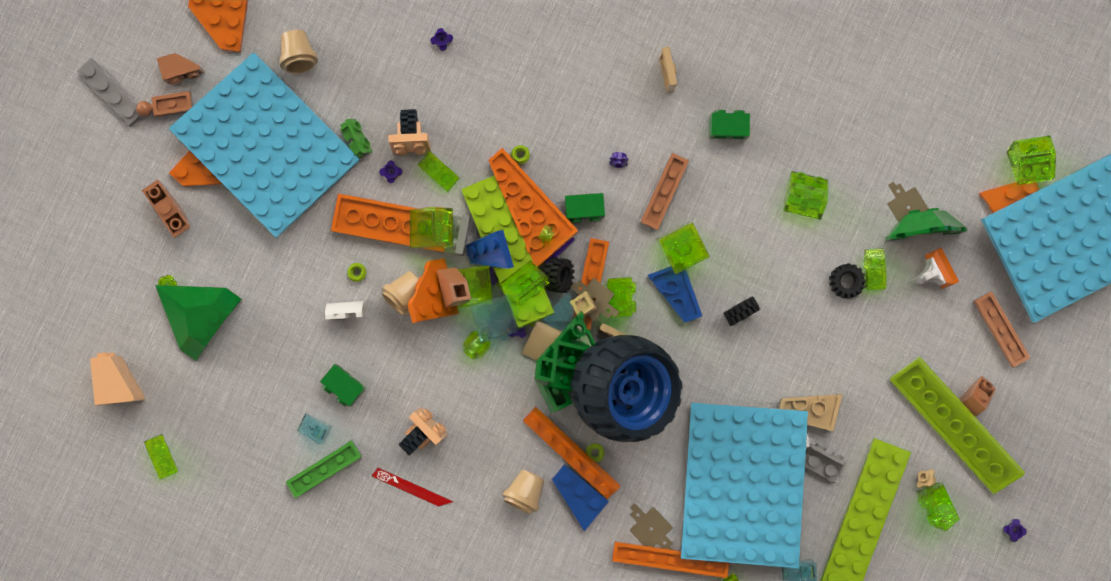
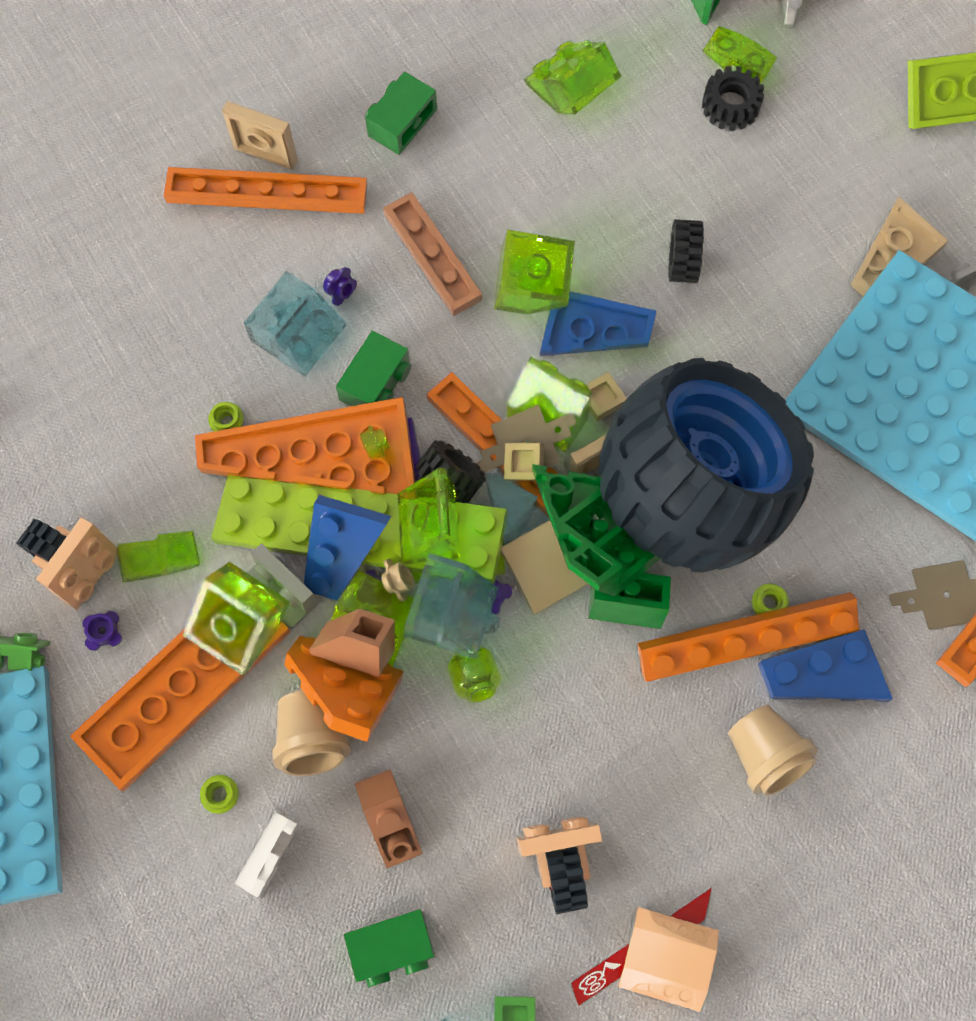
camera: 50 degrees left, 15 degrees down
(392, 349) = (388, 818): none -> nougat slope
(412, 501) = (670, 959): none -> light nougat slope
(493, 286) = (397, 579): none -> tan plate
(584, 154) = (294, 324): none -> clear light blue slope
(644, 317) = (605, 396): none -> tan plate
(645, 90) = (266, 190): none -> orange plate

